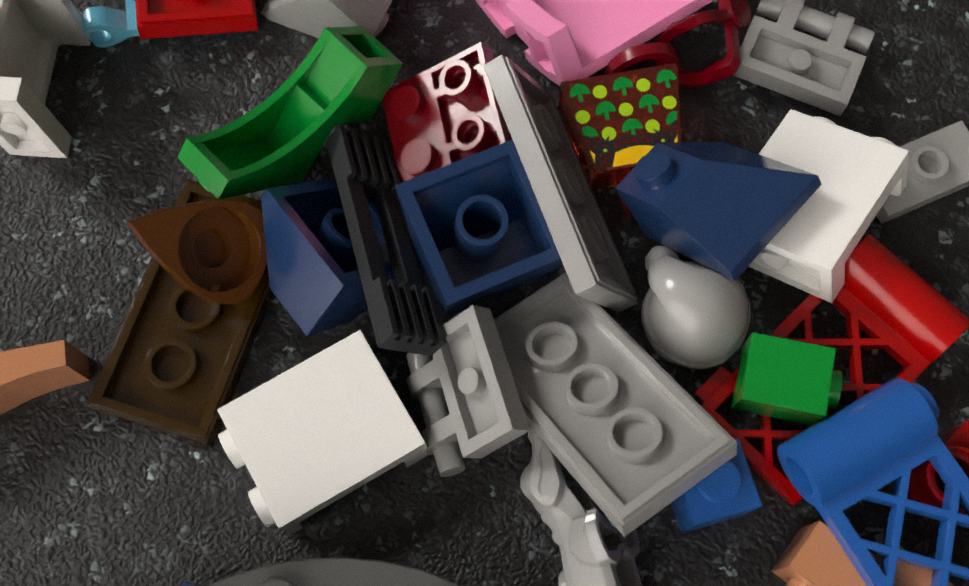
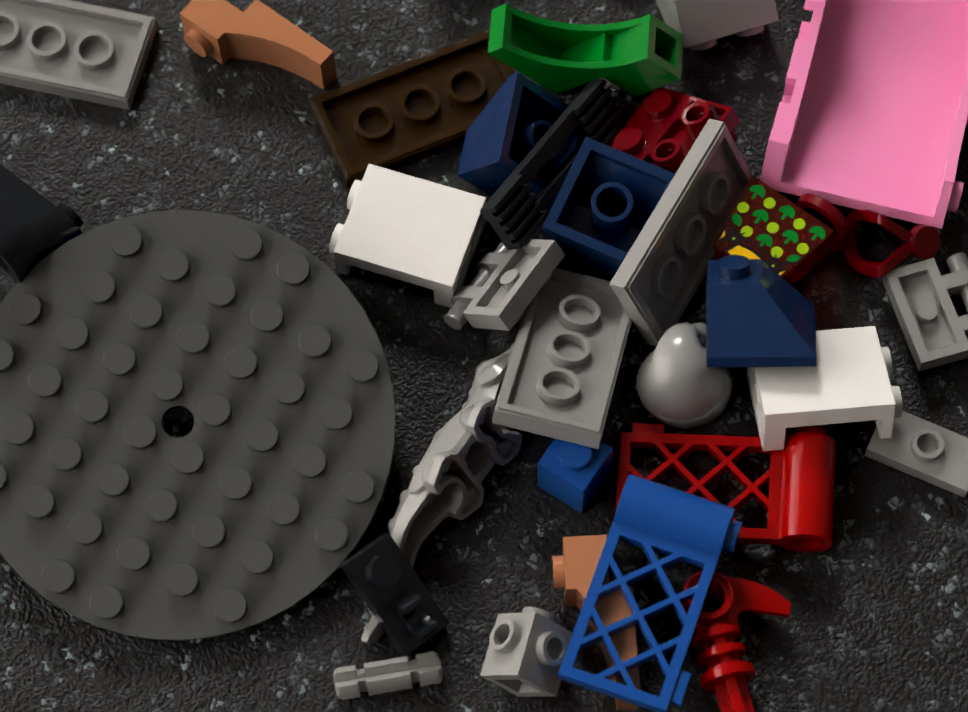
camera: 50 degrees right, 5 degrees down
(207, 246) = (455, 73): reddish brown piece -> none
(786, 379) = (679, 452): green brick -> none

